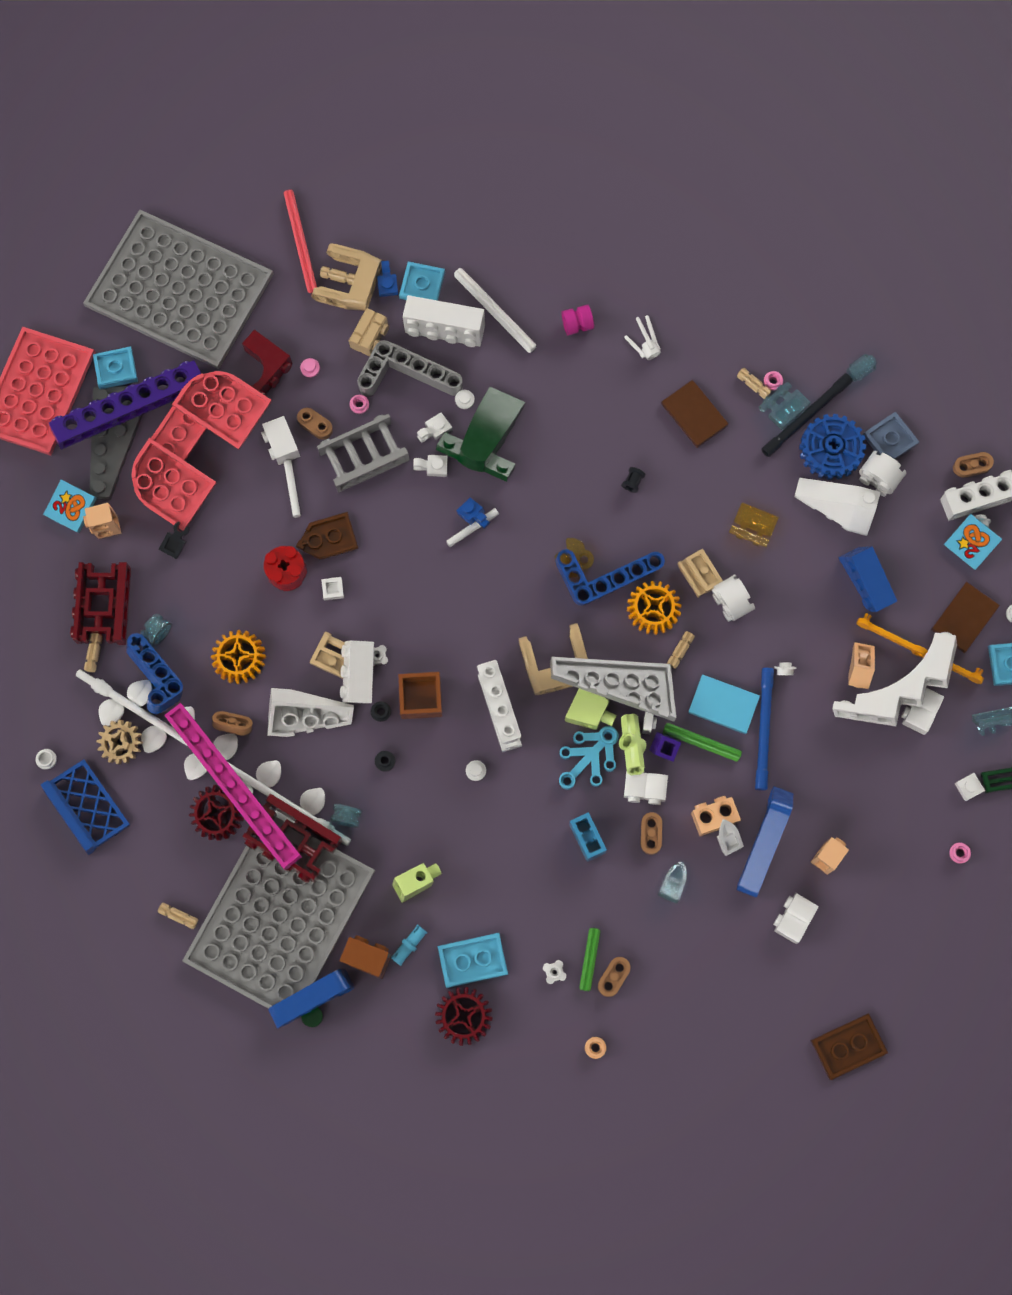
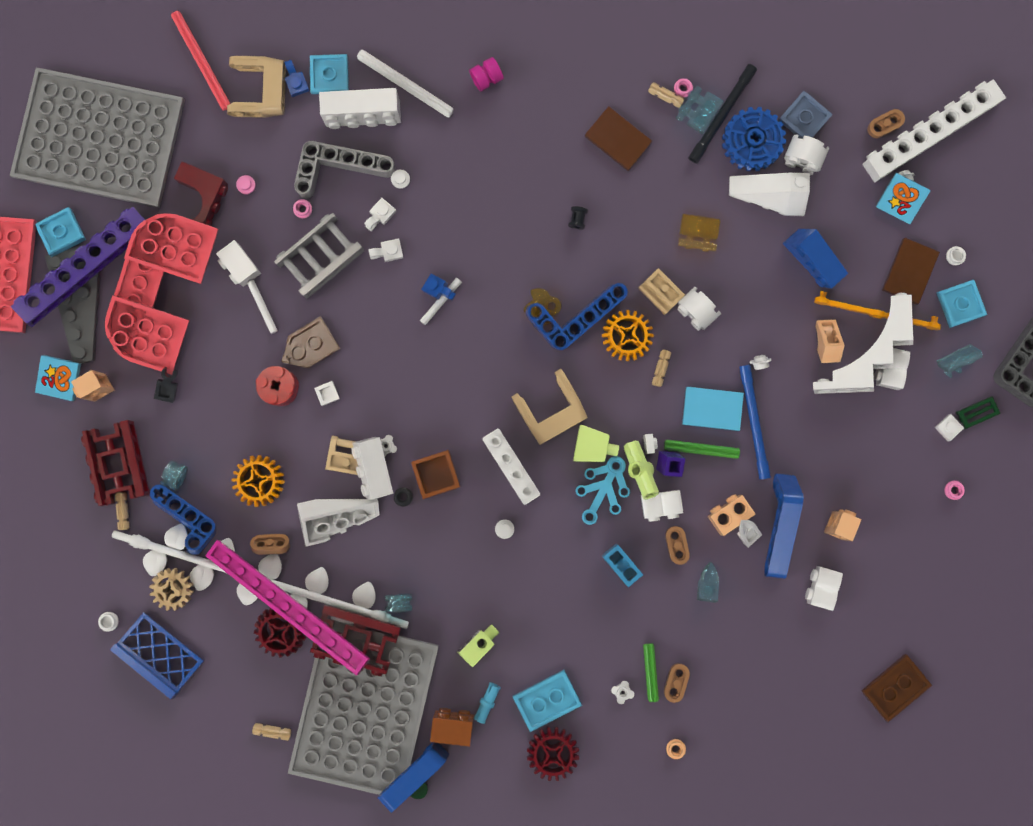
camera: 20 degrees left, 10 degrees up
(314, 422) = (265, 237): medium nougat plate -> none
(337, 275) = (245, 86): tan axle -> none
(368, 332) = (292, 135): tan brick -> none
(385, 767) = (424, 537): black plate -> none
(486, 435) = (429, 209): dark green slope -> none
(630, 683) = (624, 414): light grey wing -> none
(650, 347) = (561, 84): white plant -> none
(862, 367) = (762, 54): clear light blue brick -> none

